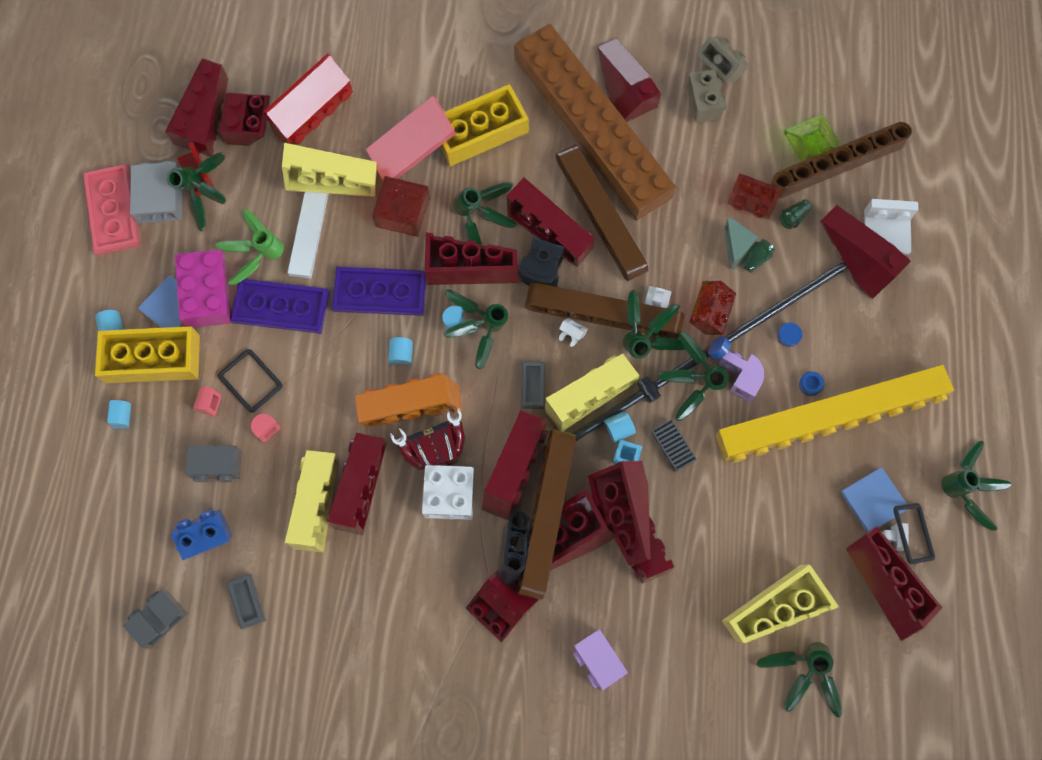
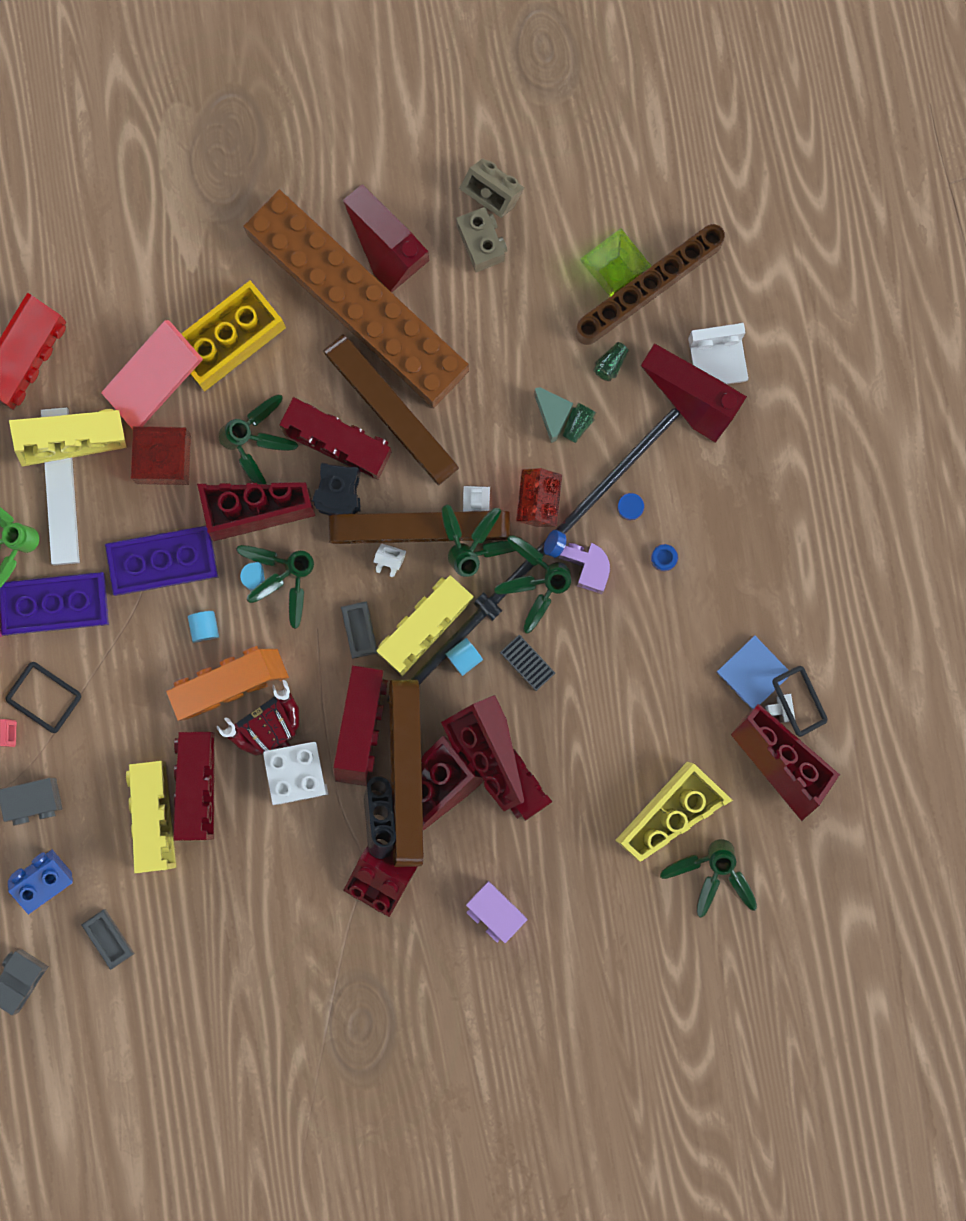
camera: 15 degrees left, 10 degrees up
(264, 427) = (74, 748): coral brick -> none
(627, 452) = (479, 685): medium azure brick -> none
(754, 196) = (560, 353): clear red brick -> none
(834, 413) = (694, 587): yellow brick -> none
(967, 481) = (845, 632): dark green plant -> none

